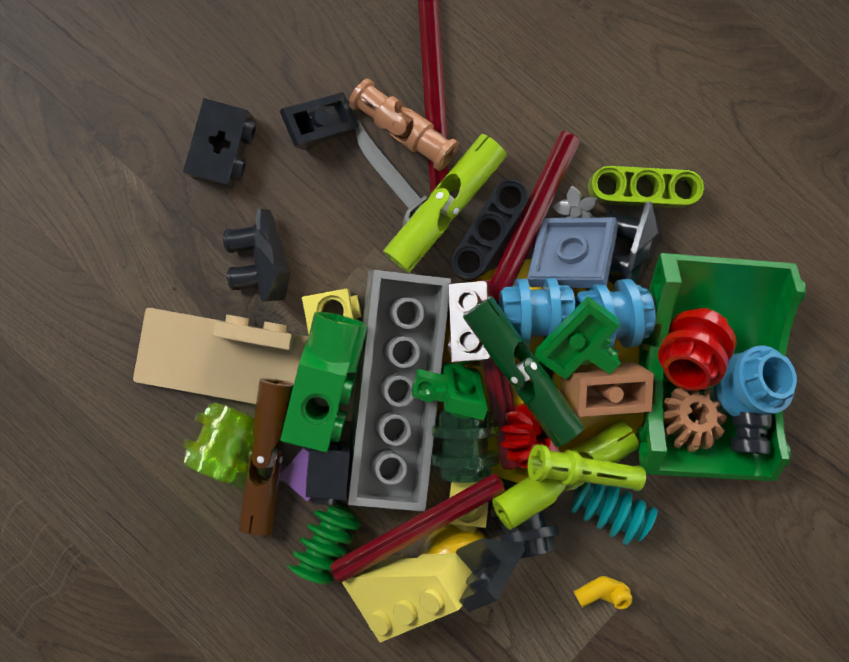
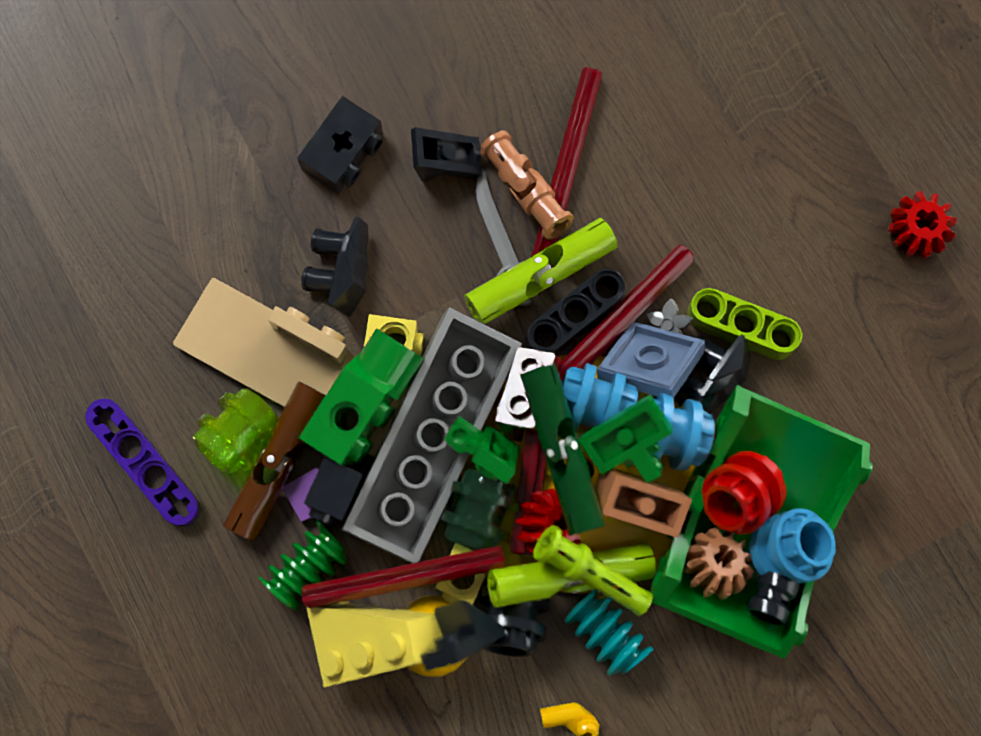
camera: 15 degrees right, 10 degrees down
(149, 490) = (145, 460): none -> dark purple beam
(766, 31) = (916, 211): none -> red gear

